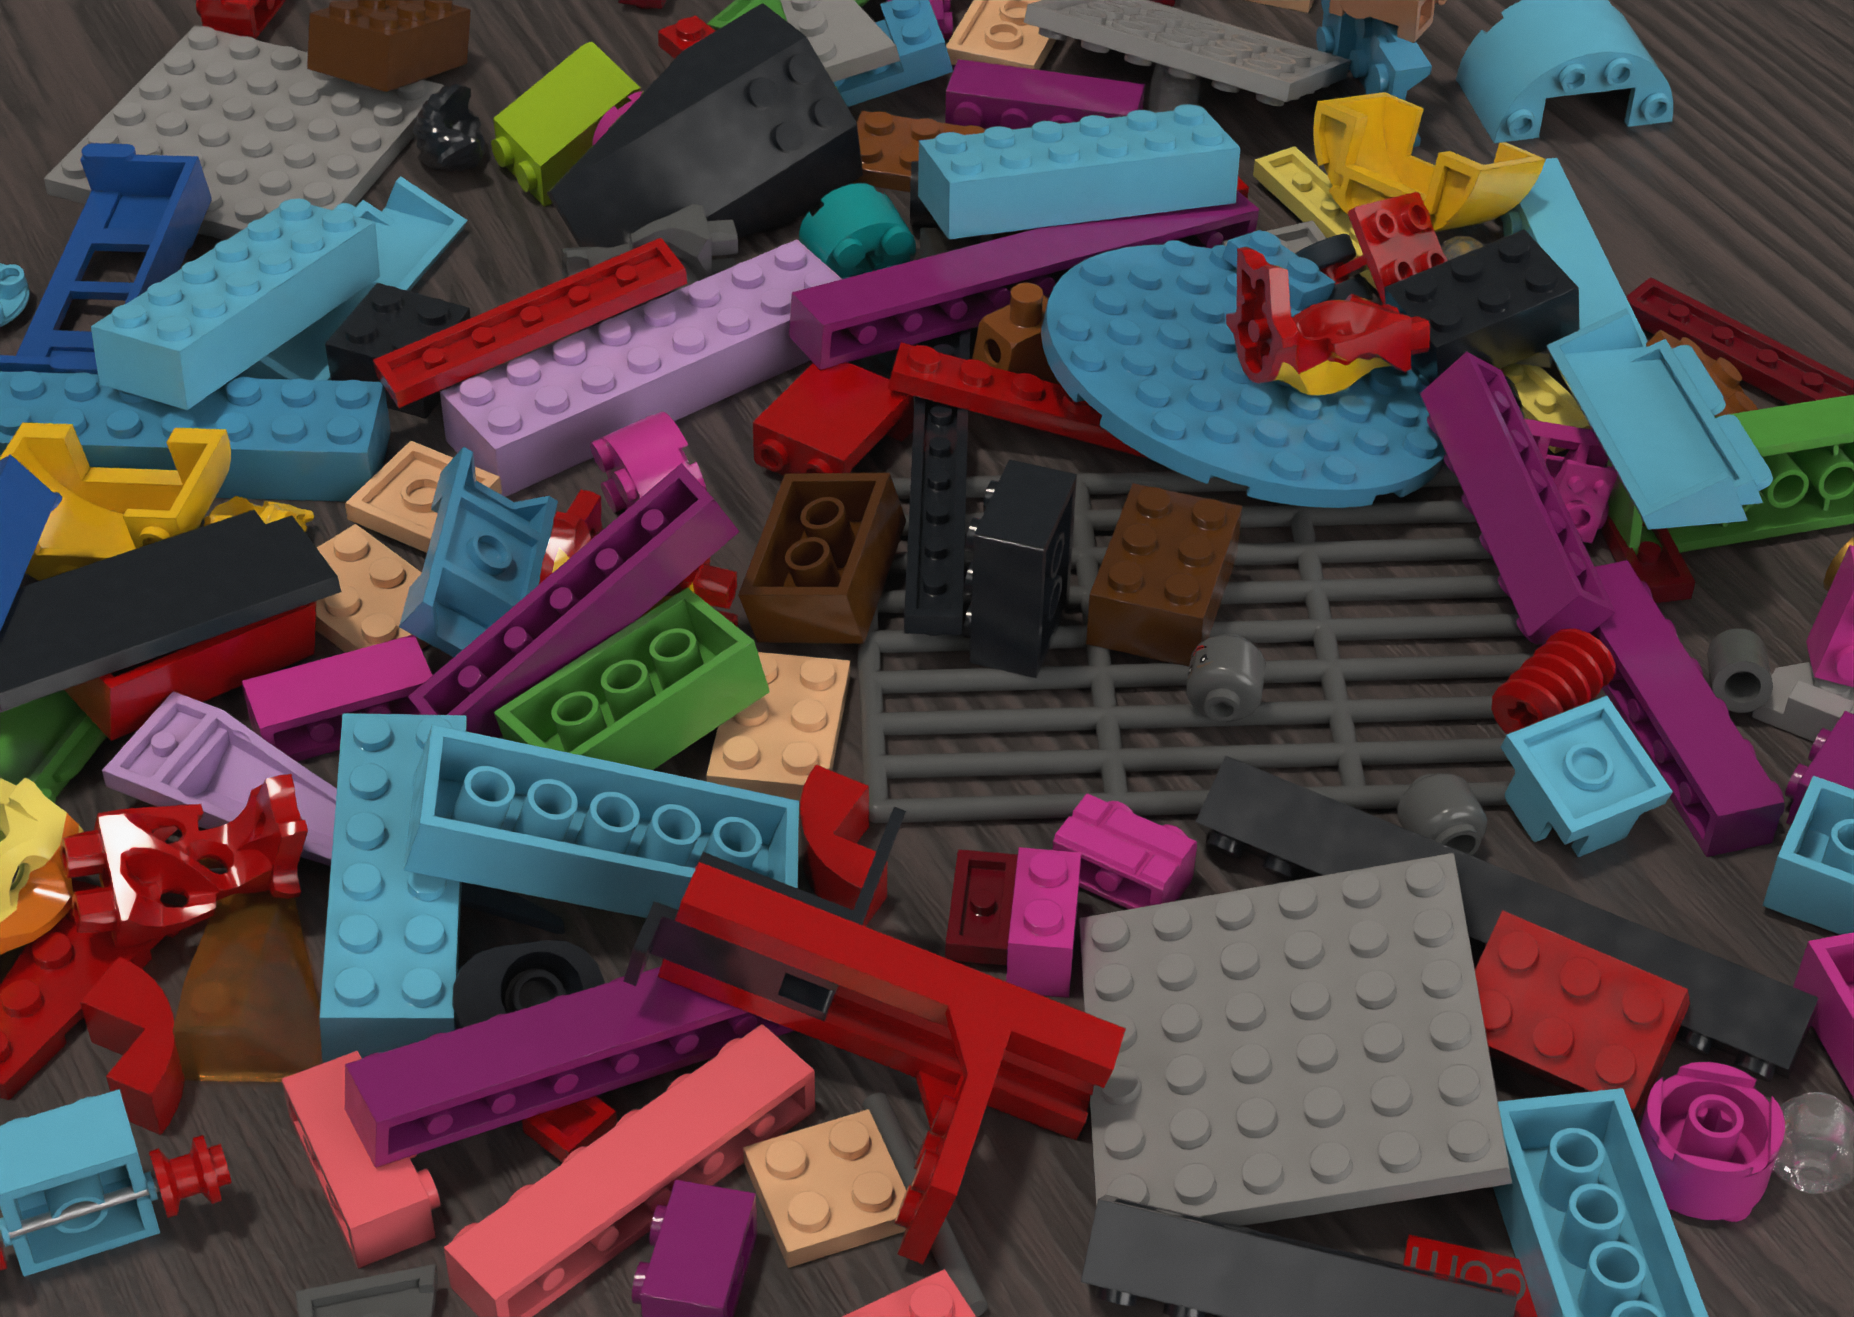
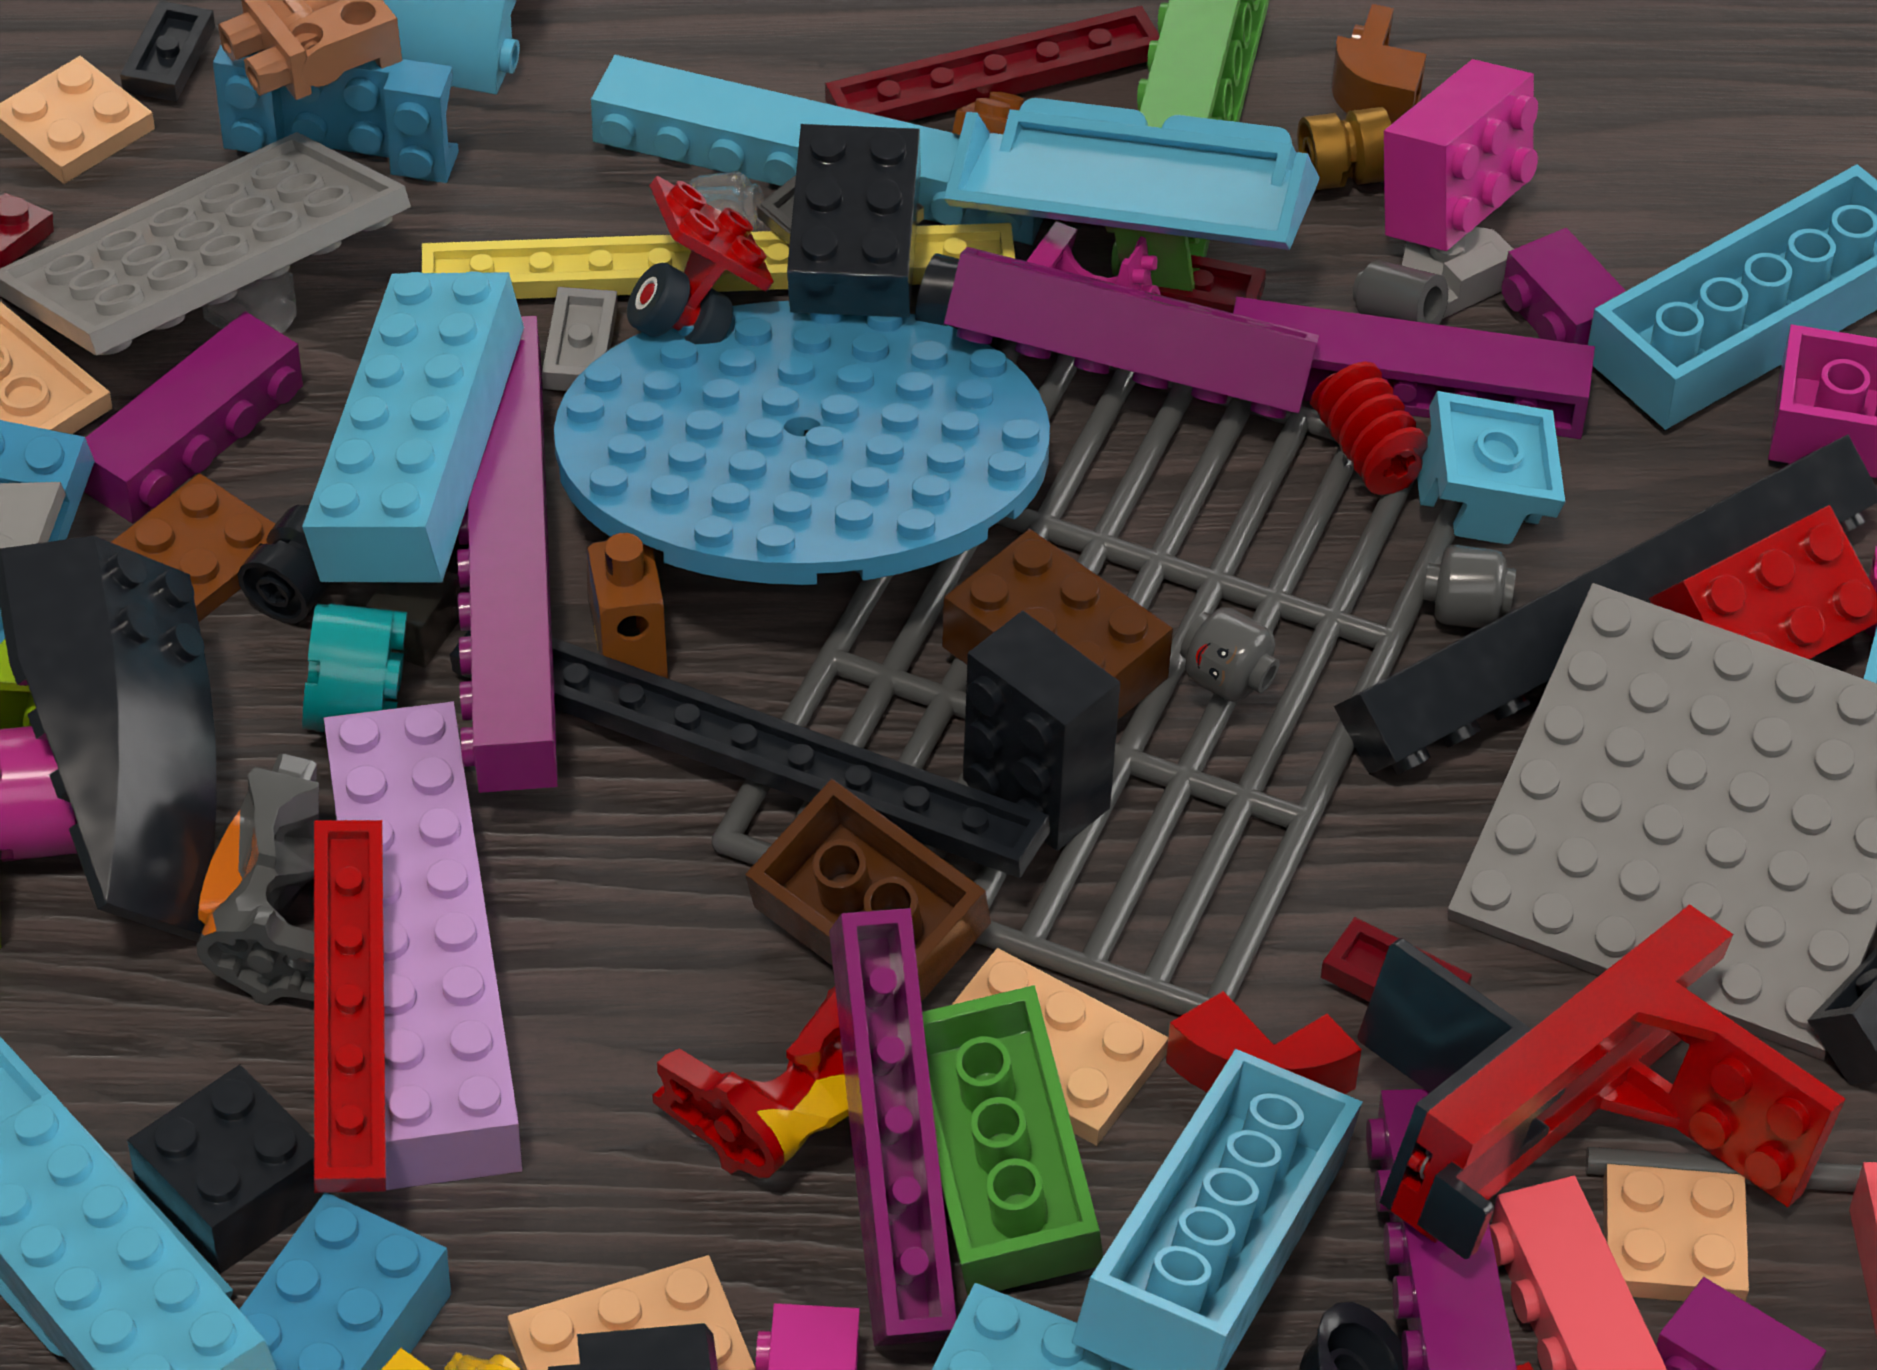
camera: 65 degrees left, 5 degrees up
(402, 493) = (505, 1235): light nougat plate -> none
(478, 559) = (761, 1236): dark azure piece -> none
(640, 458) = (632, 1000): dark pink brick -> none
(829, 421) = (630, 818): red panel -> none
(998, 394) = (697, 651): red plate -> none
(1043, 921) = (1456, 926): dark pink brick -> none
(1127, 854) = (1393, 839): dark pink brick -> none
(1306, 282) = (661, 343): dark azure plate -> none
(1322, 345) = (843, 349): red hips -> none
(1369, 159) = (598, 189): yellow cylinder -> none

